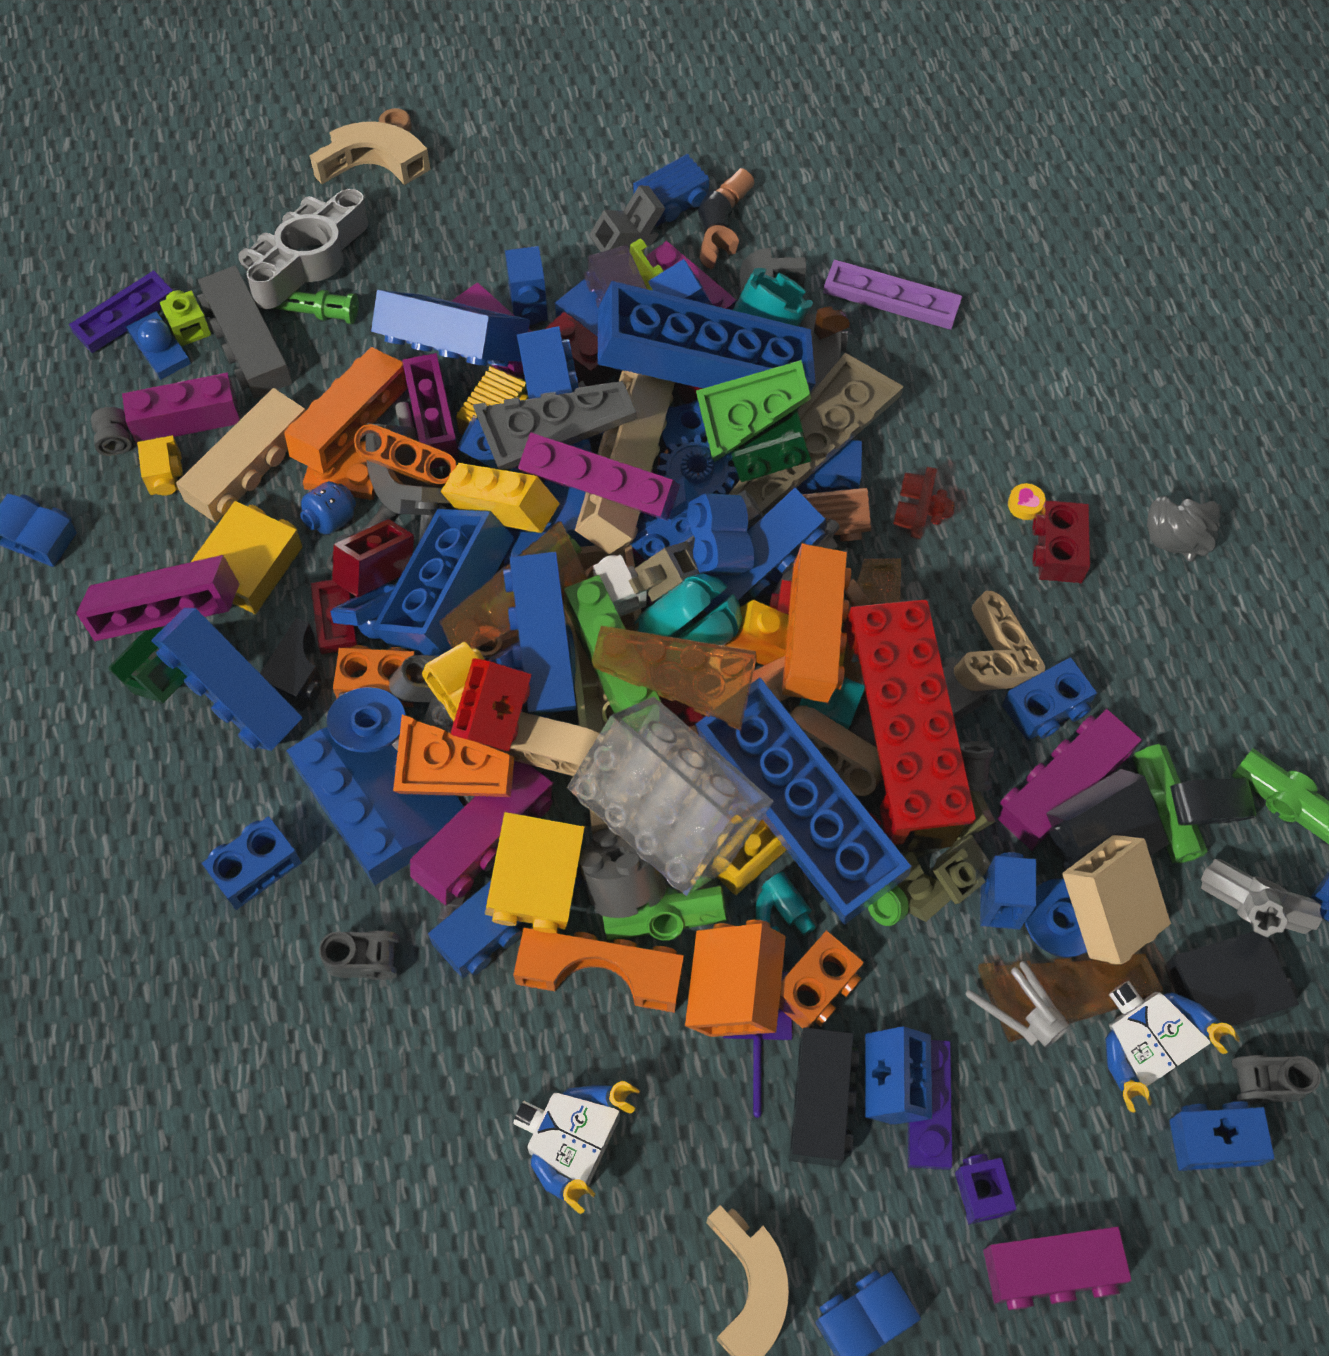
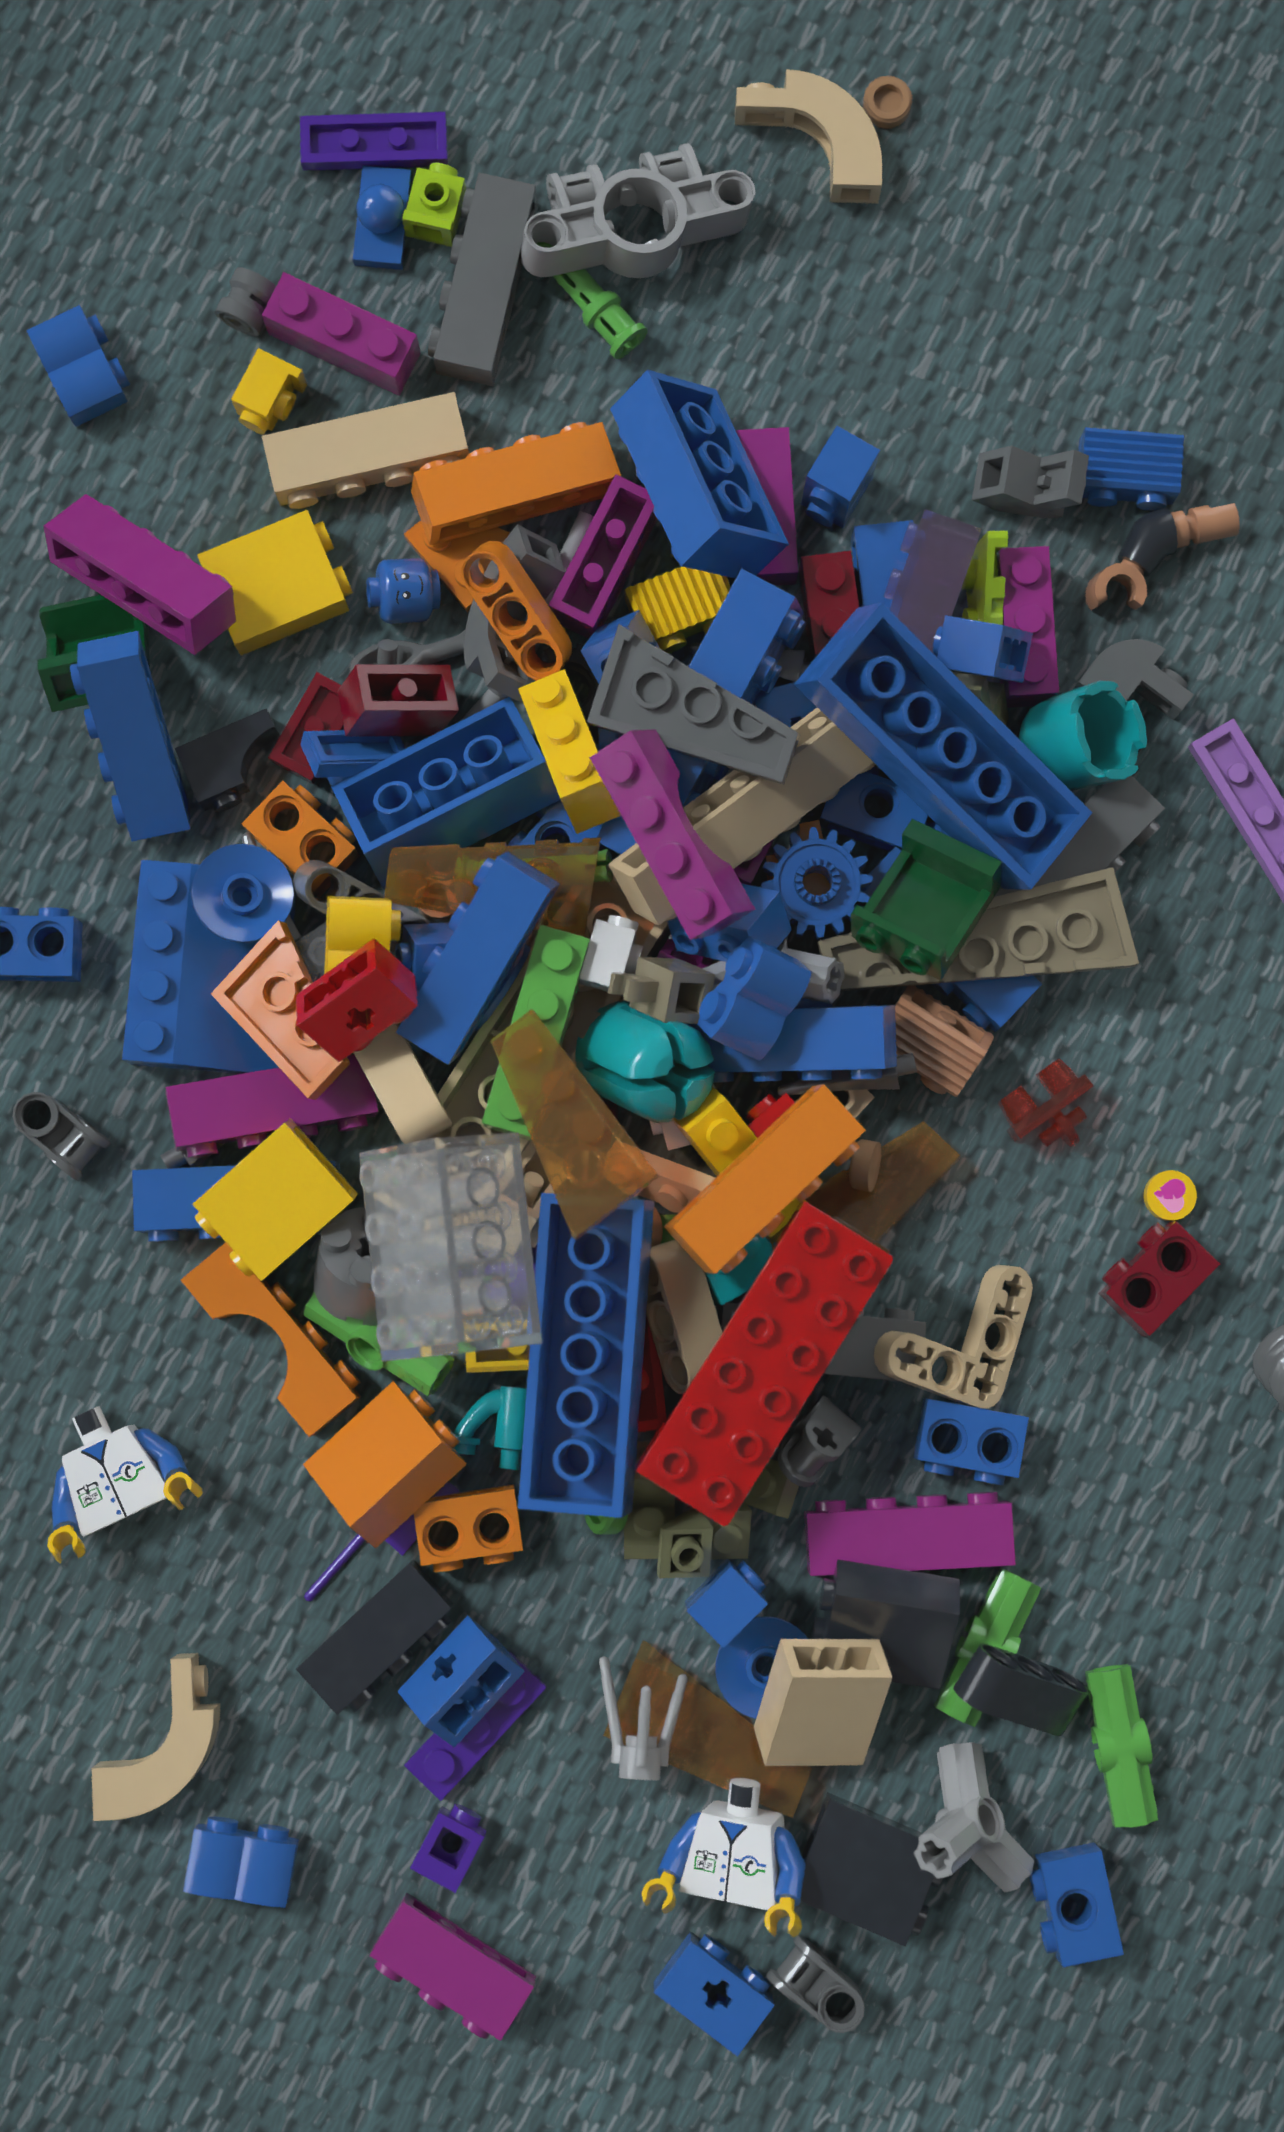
camera: 40 degrees right, 20 degrees up
(749, 405) = (927, 863): bright green wing -> none
(830, 322) = (1132, 809): reddish brown tile -> none

